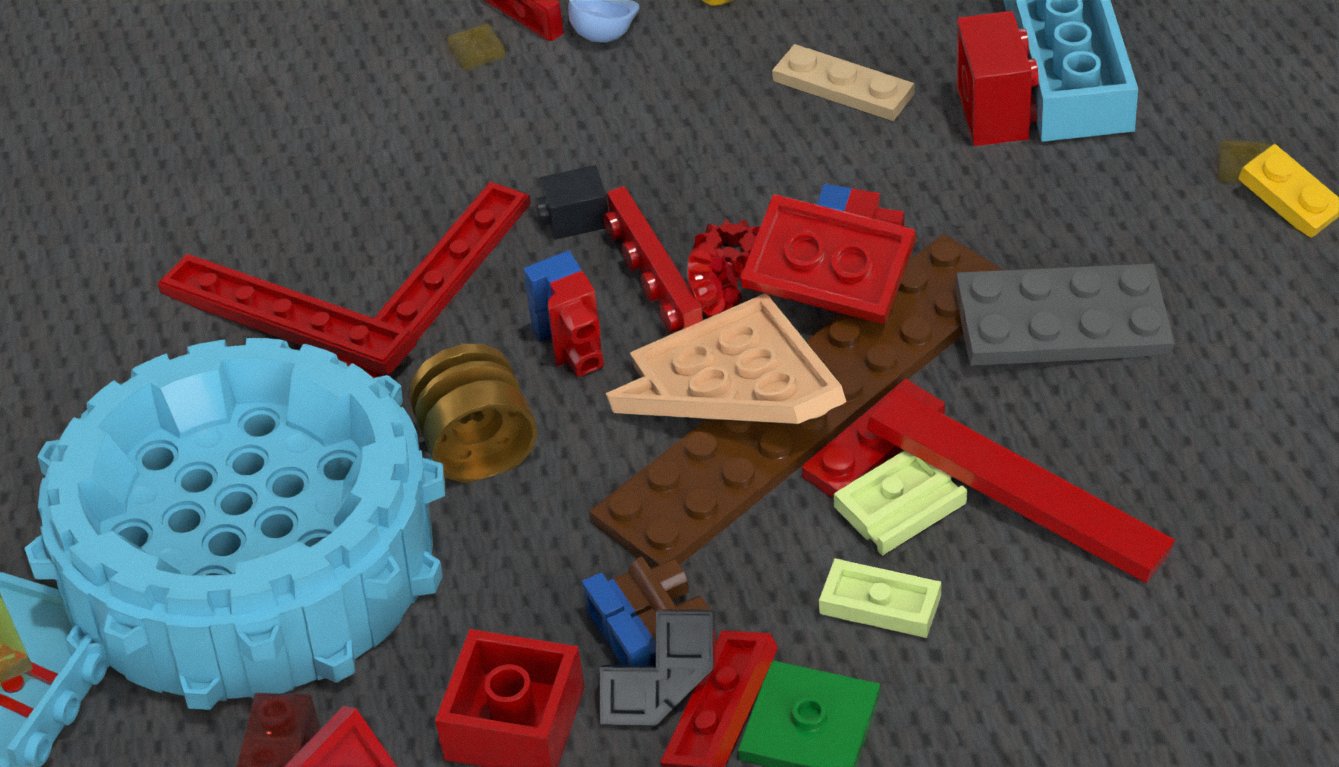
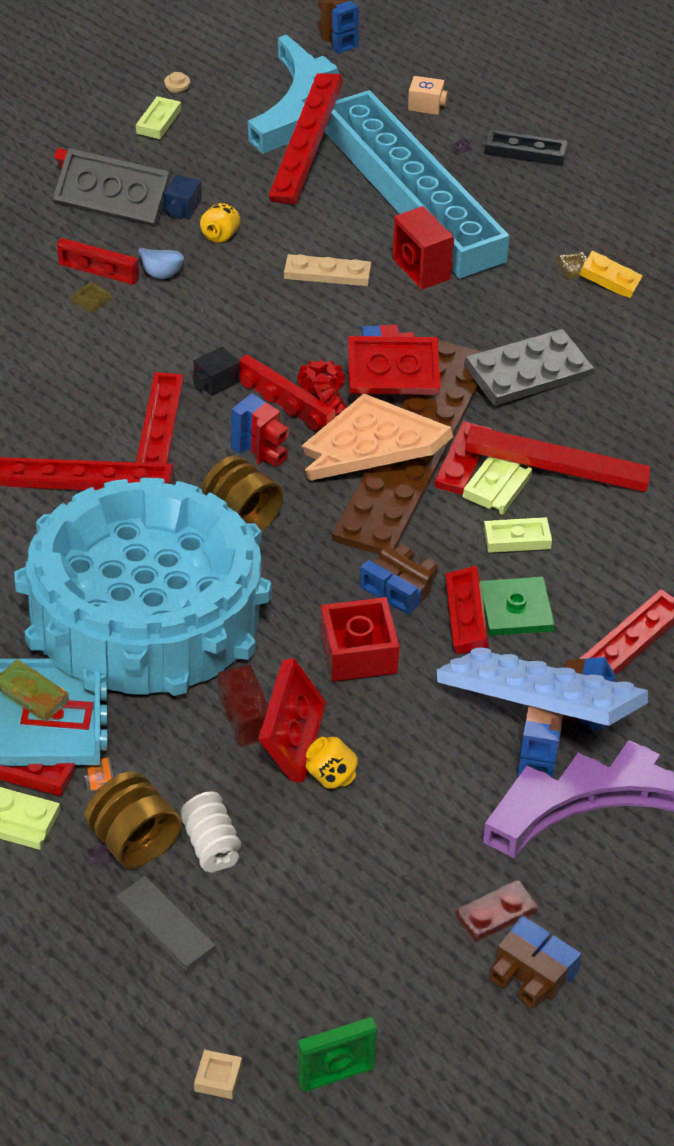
camera: 30 degrees left, 0 degrees up
(651, 691) = (440, 590): black tile -> none

